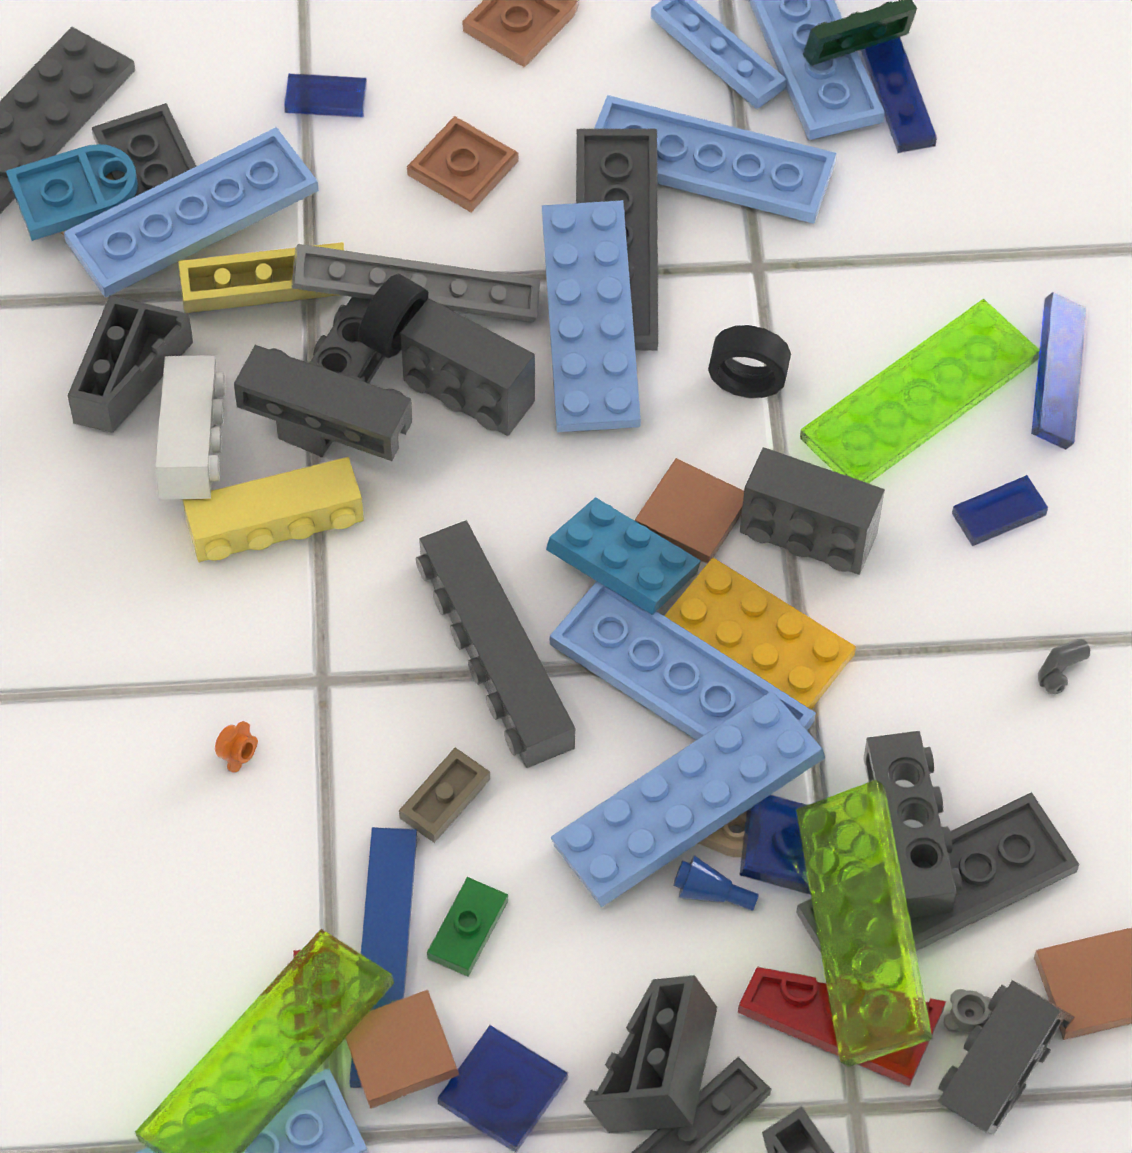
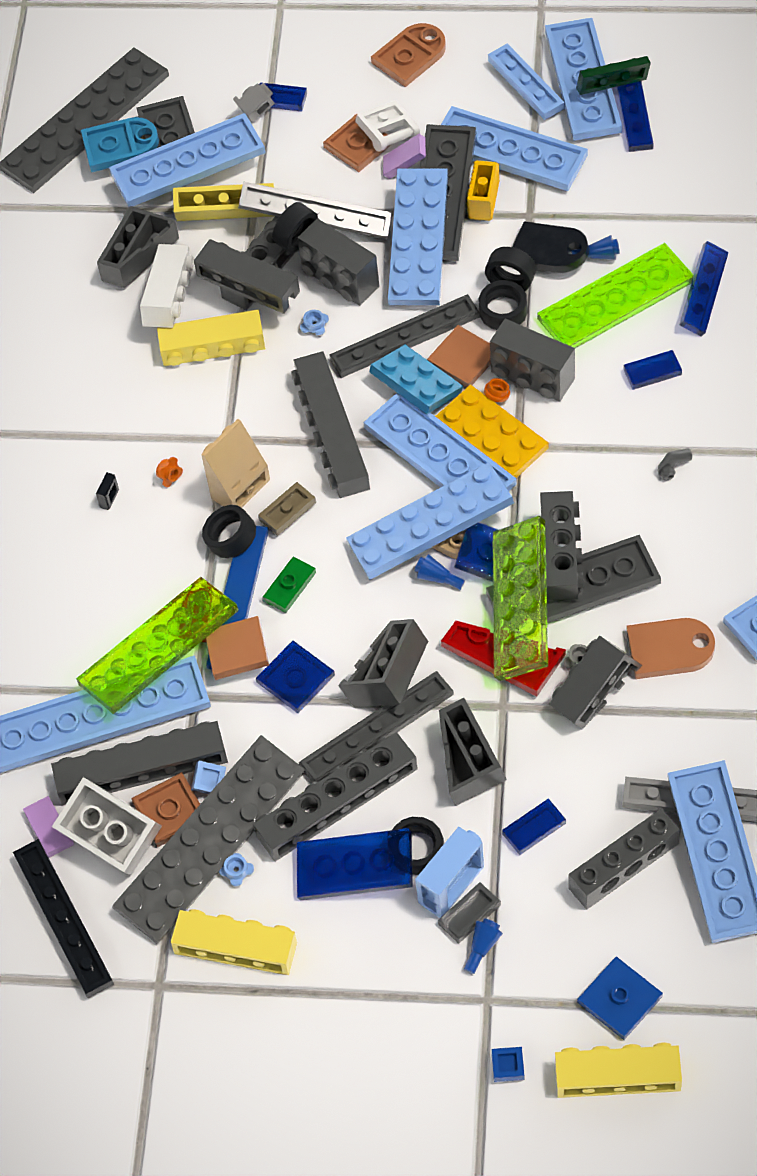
camera: 15 degrees right, 0 degrees up
(137, 789) = (107, 491): none -> black tile
(287, 105) = (255, 101): none -> light grey brick
(339, 821) = (219, 521): none -> black tyre
(352, 735) = (234, 467): none -> tan slope
(439, 460) = (311, 317): none -> light blue plate
(505, 122) = (384, 119): none -> white plate
(546, 183) = (404, 156): none -> lavender tile
(596, 477) = (409, 332): none -> dark grey tile
(682, 232) = (483, 190): none -> yellow brick
(749, 394) = (498, 290): none -> black tyre
(758, 564) = (497, 390): none -> orange plate
(808, 316) = (552, 246): none -> black tile
(887, 316) = (603, 249): none -> blue cone

